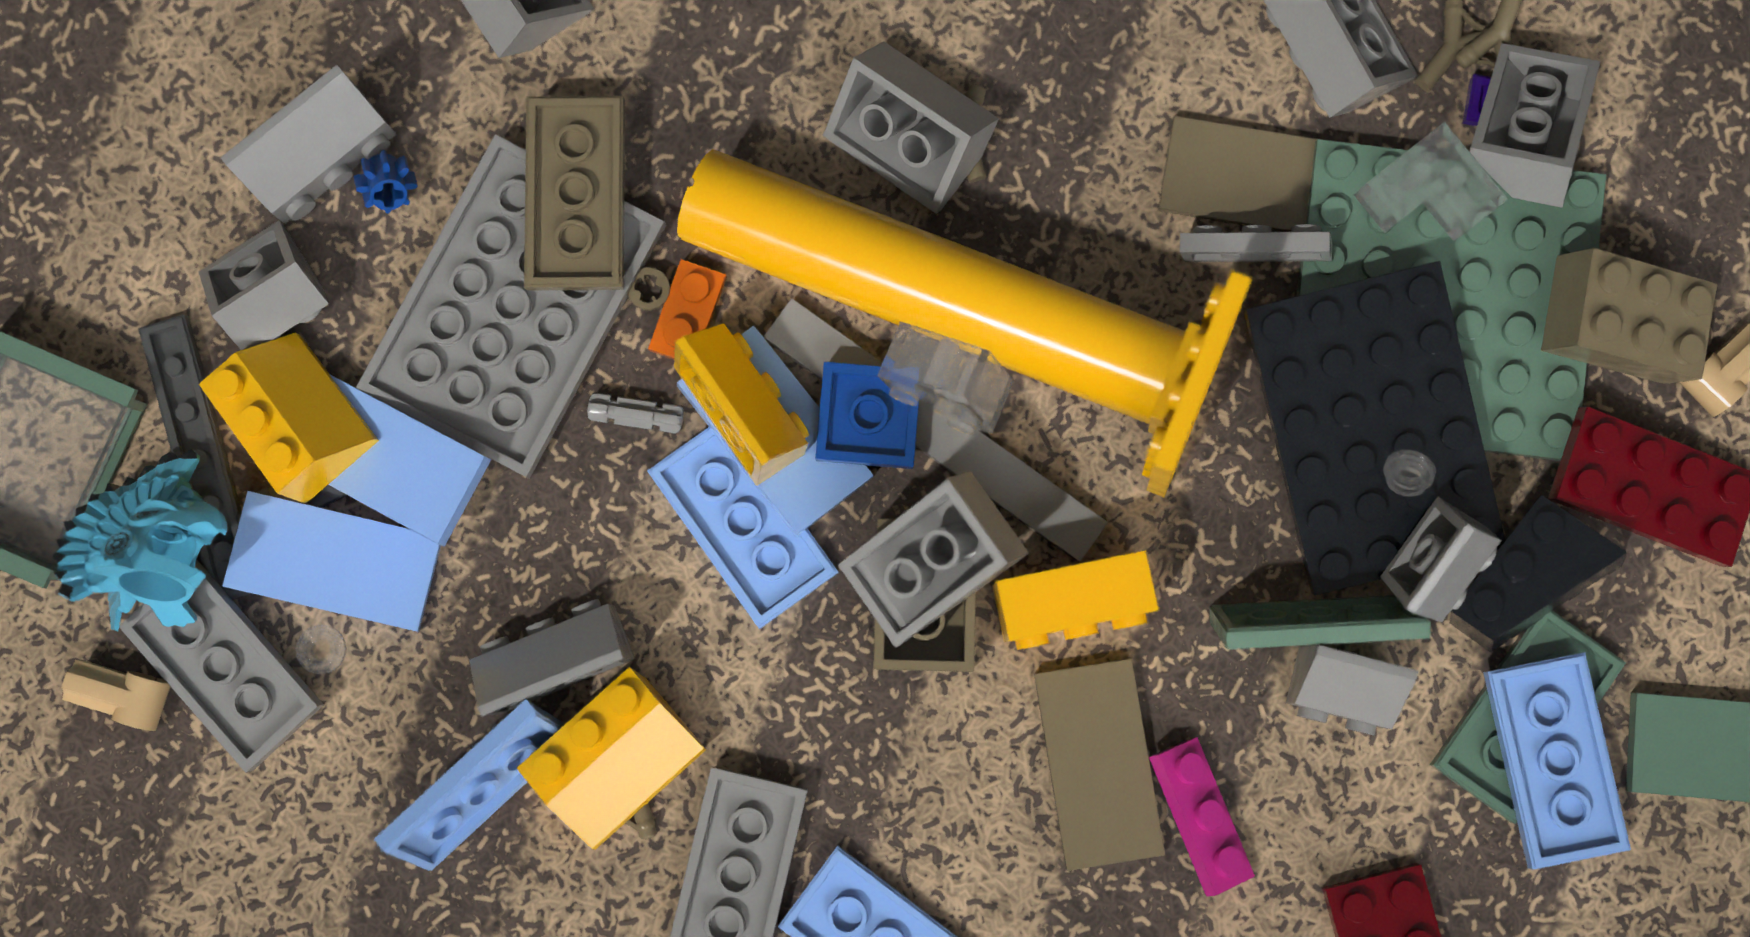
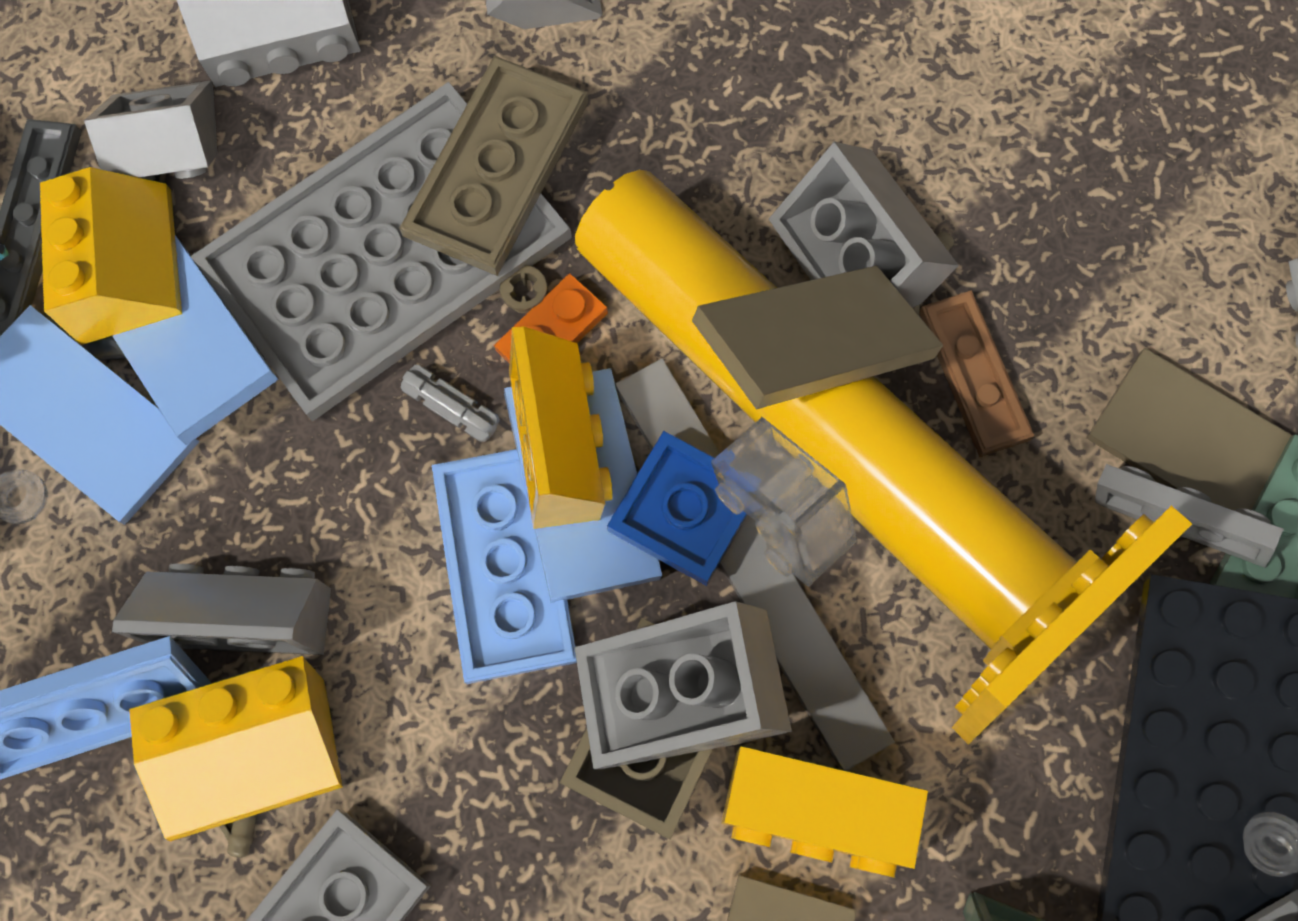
camera: 25 degrees right, 10 degrees down
(385, 181) = (310, 79): blue gear -> none
(915, 239) = (815, 335): none -> dark tan tile
(1048, 196) = (977, 374): none -> medium nougat tile

